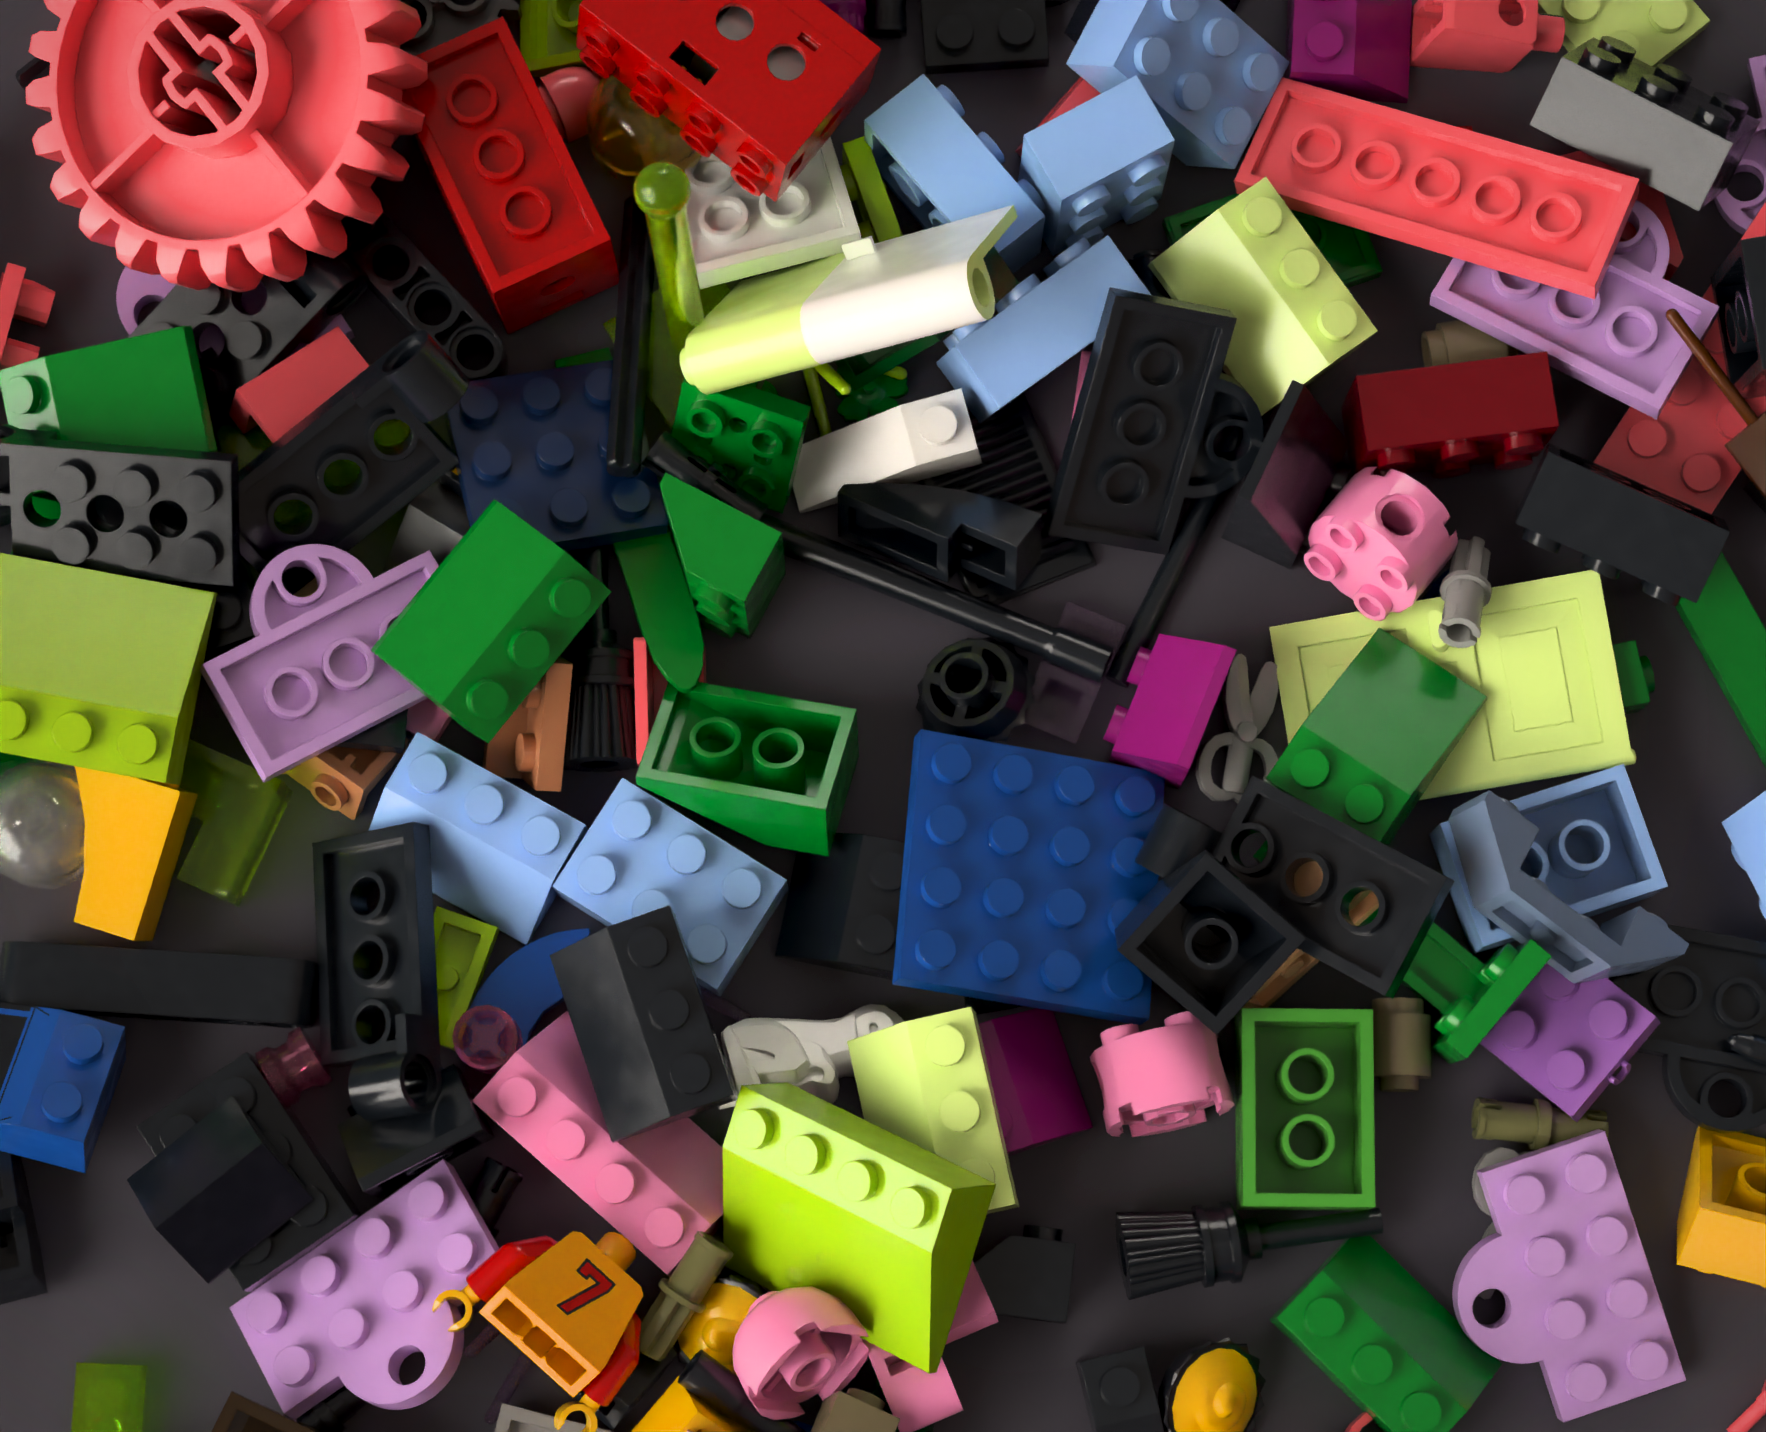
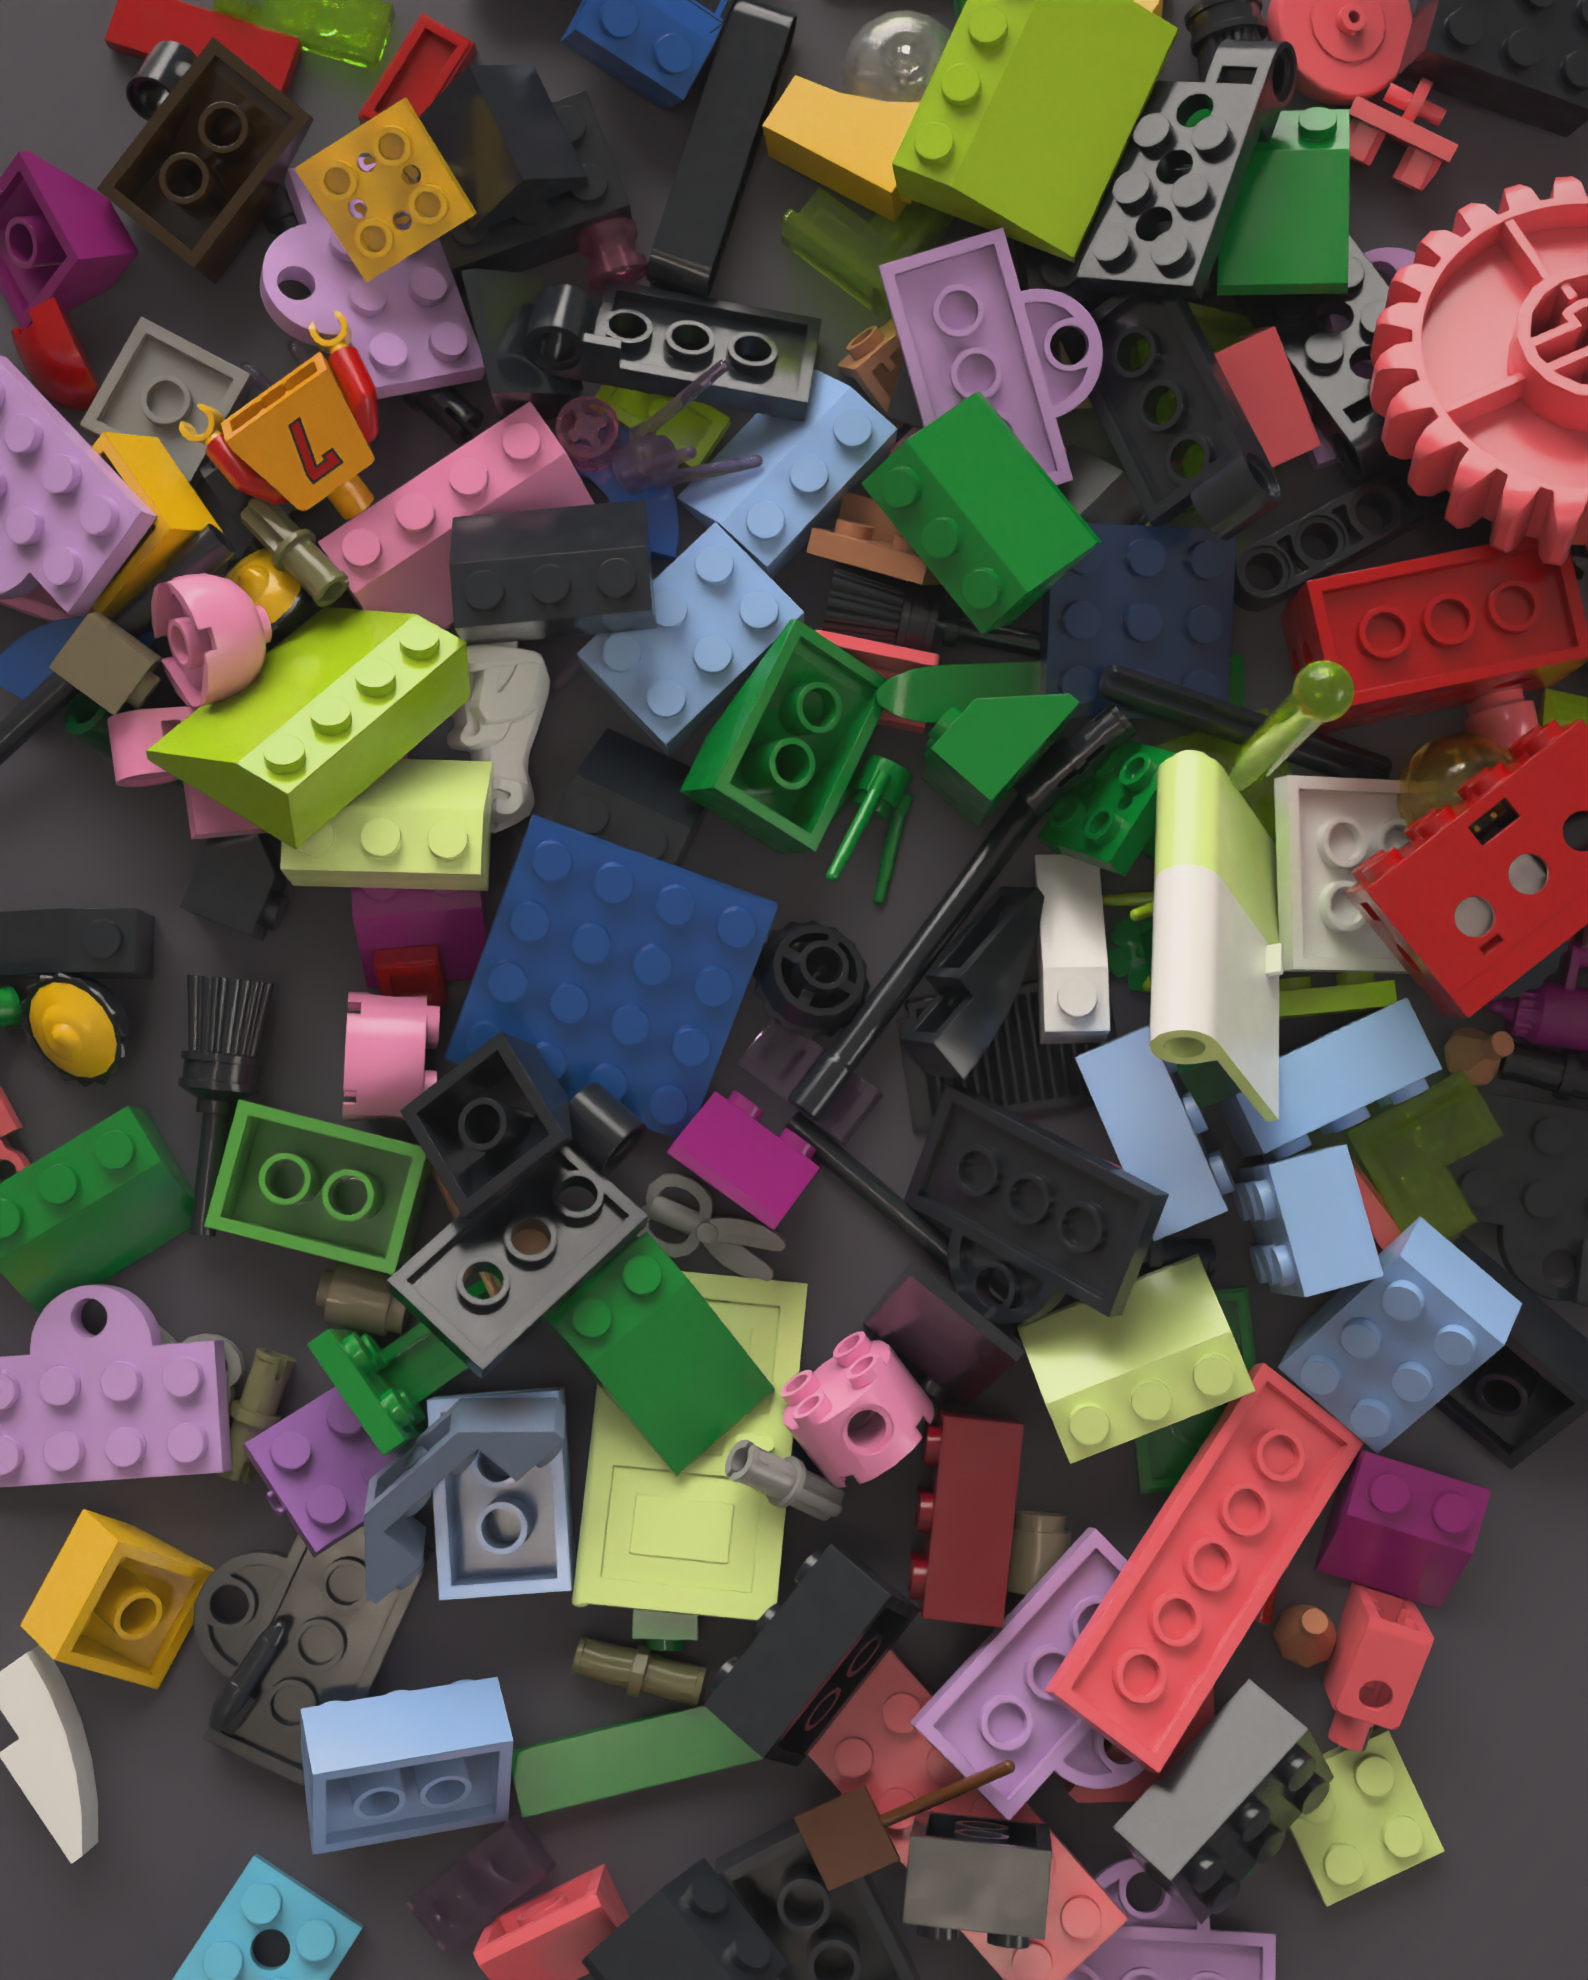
camera: 105 degrees right, 5 degrees up
(153, 1317) = (421, 68): none -> red tile
(258, 1293) = (396, 143): none -> yellow plate
(502, 966) = (653, 459): none -> clear purple plant
(779, 668) = (878, 790): none -> green plant
(897, 60) = (1477, 1053): none -> nougat rock
(1000, 94) = (1415, 1142): none -> clear neon green panel
(1071, 1081) = (412, 973): none -> red tile
(1470, 95) = (1305, 1635): none -> nougat rock
(1677, 694) = (638, 1670): none -> olive pin

